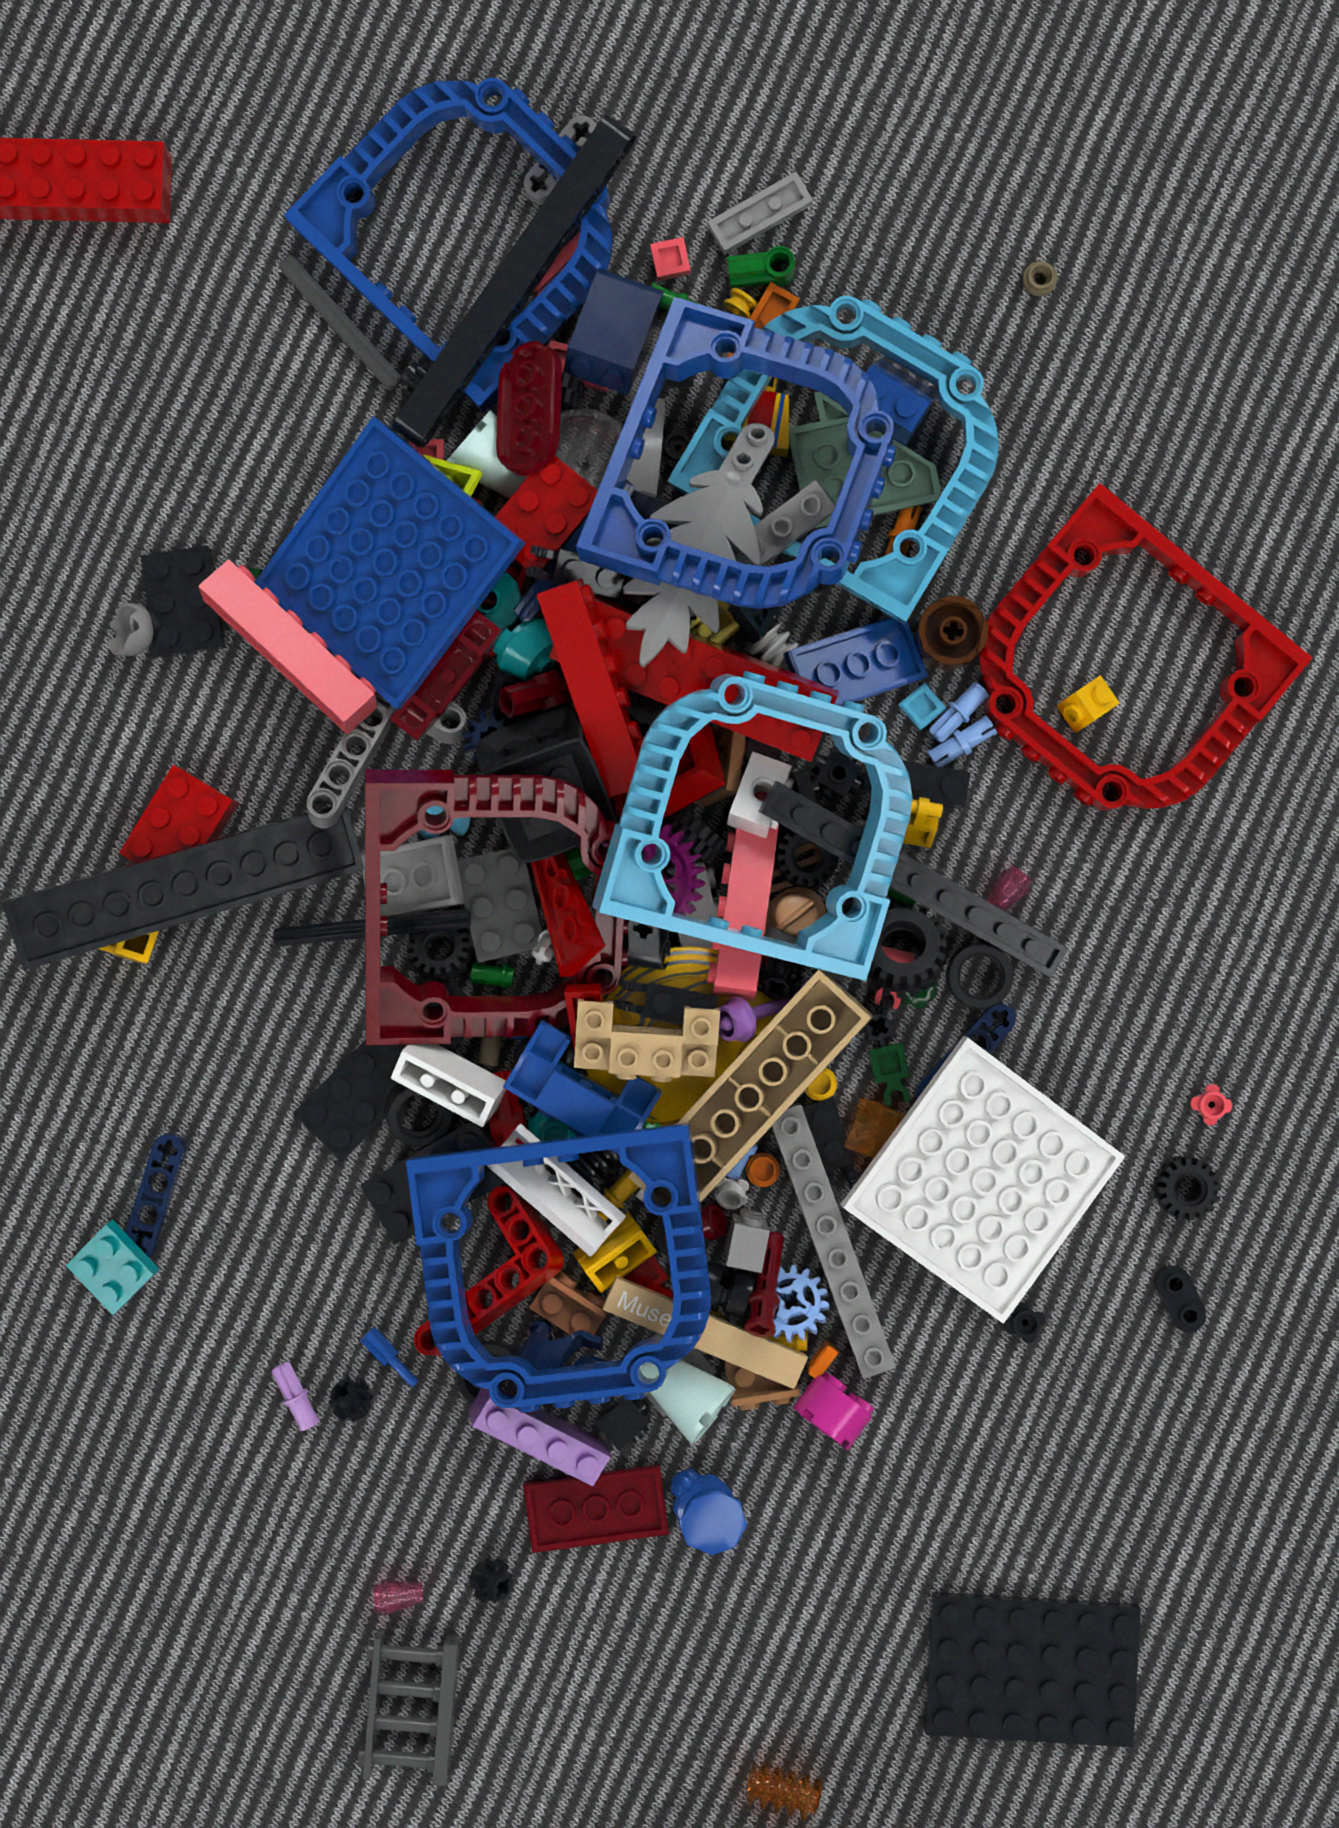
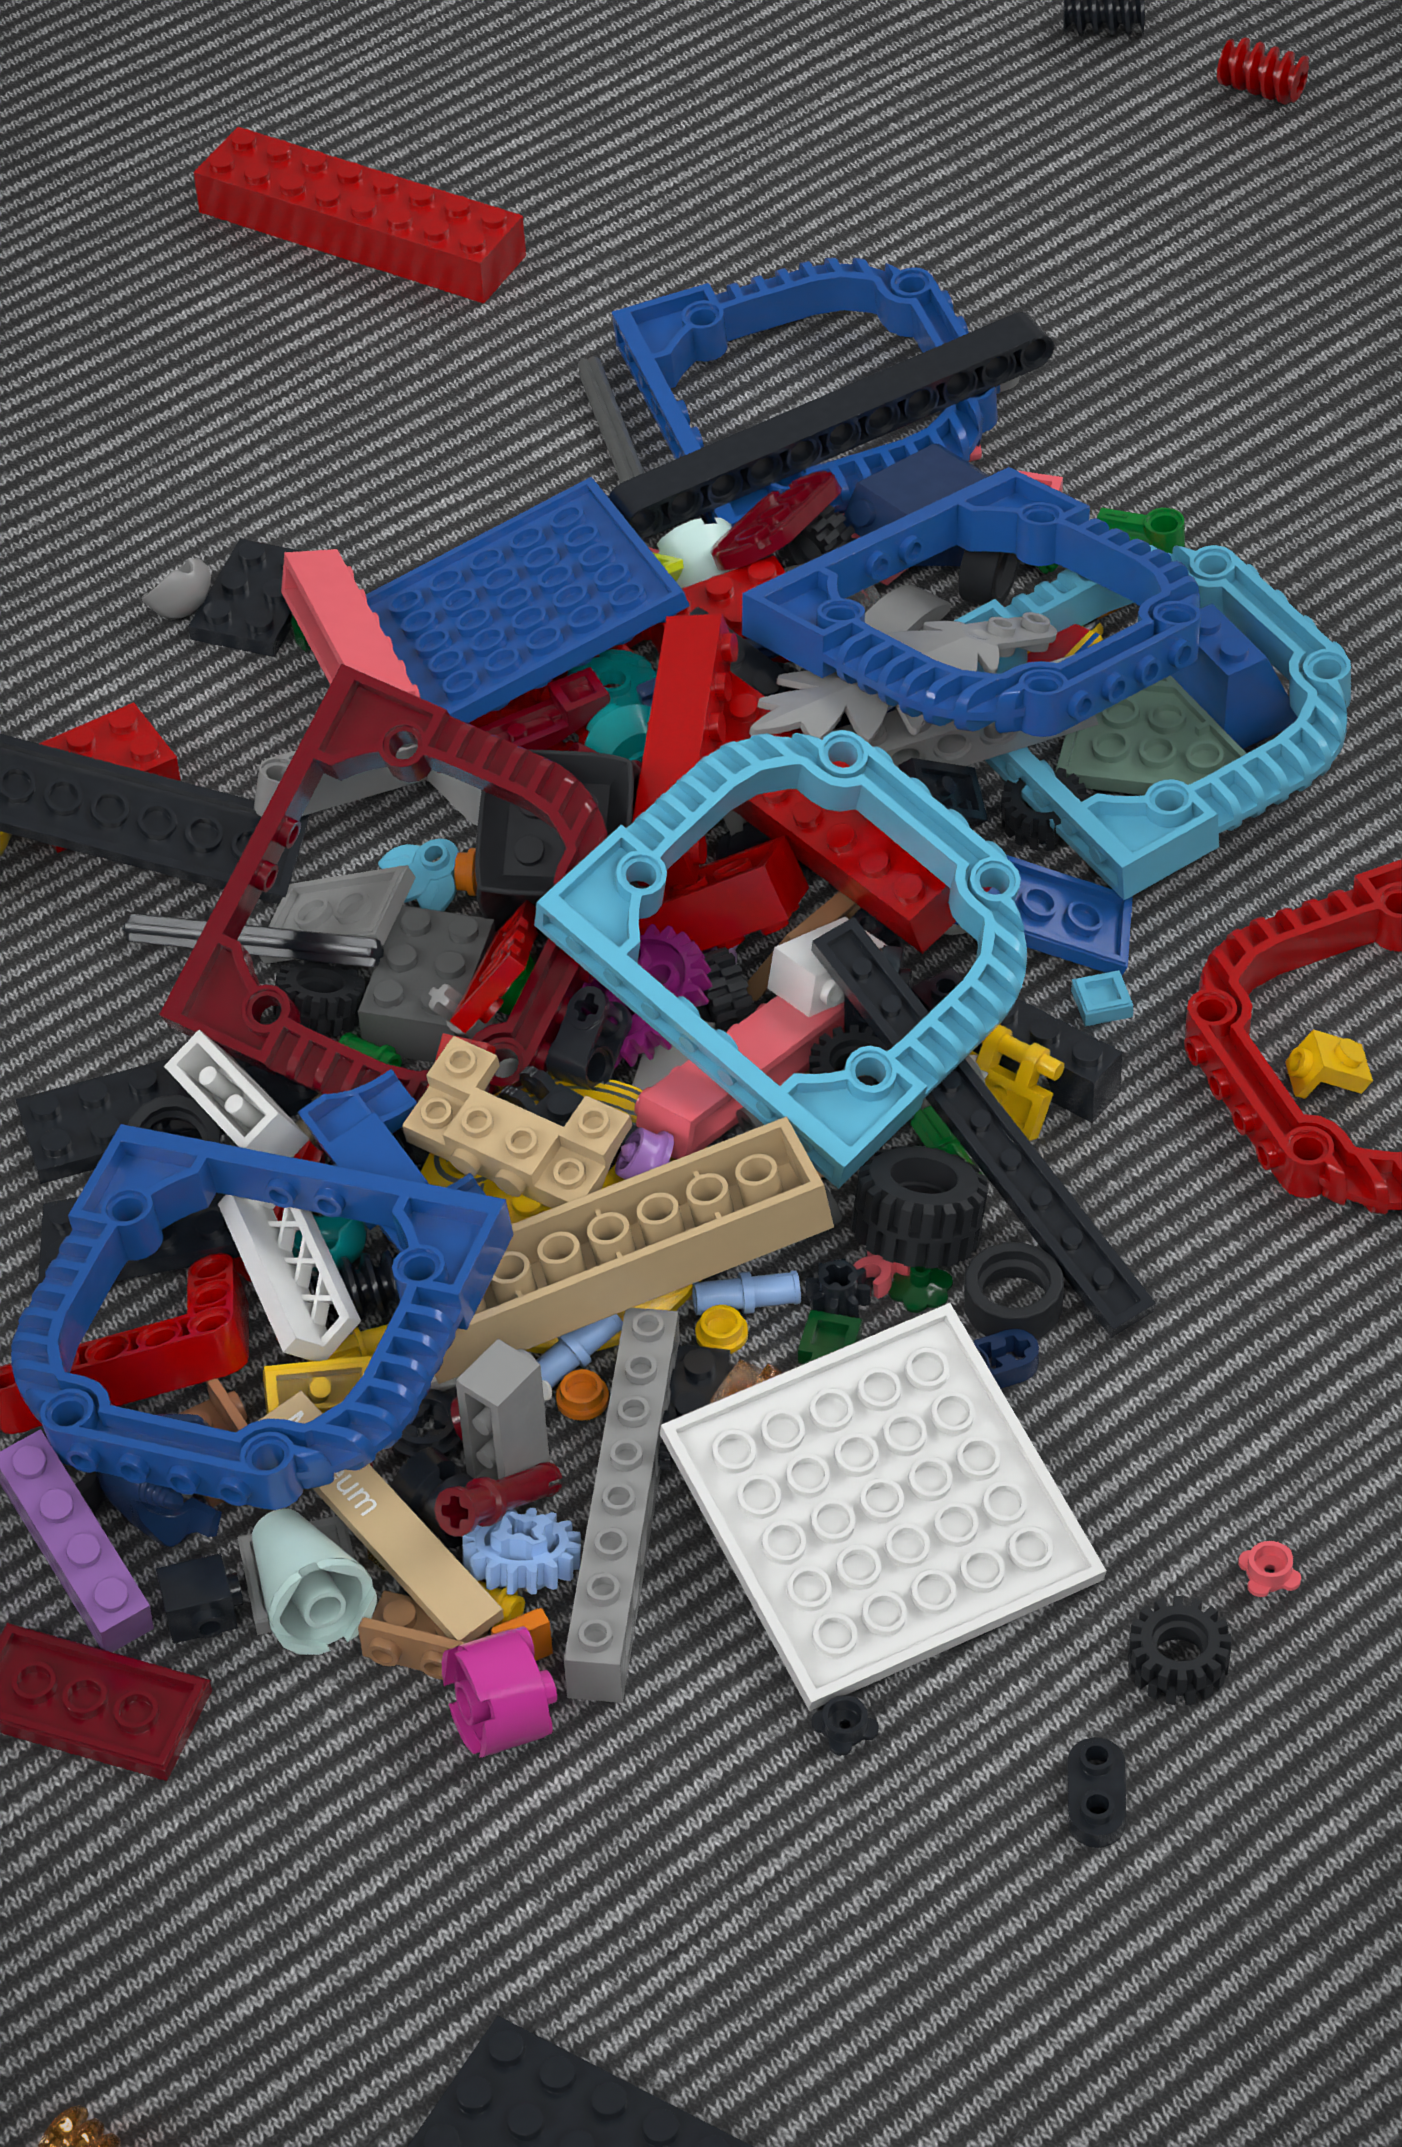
camera: 30 degrees right, 40 degrees down
(707, 1512) = (237, 1752): blue piece -> none
(760, 213) = (1176, 489): light grey plate -> none
(958, 712) = (1144, 1015): light blue axle -> none
(962, 742) = (1146, 1042): light blue pin -> none
(966, 623) = (1177, 921): reddish brown brick -> none
(1009, 888) = (1117, 1211): clear pink cone -> none

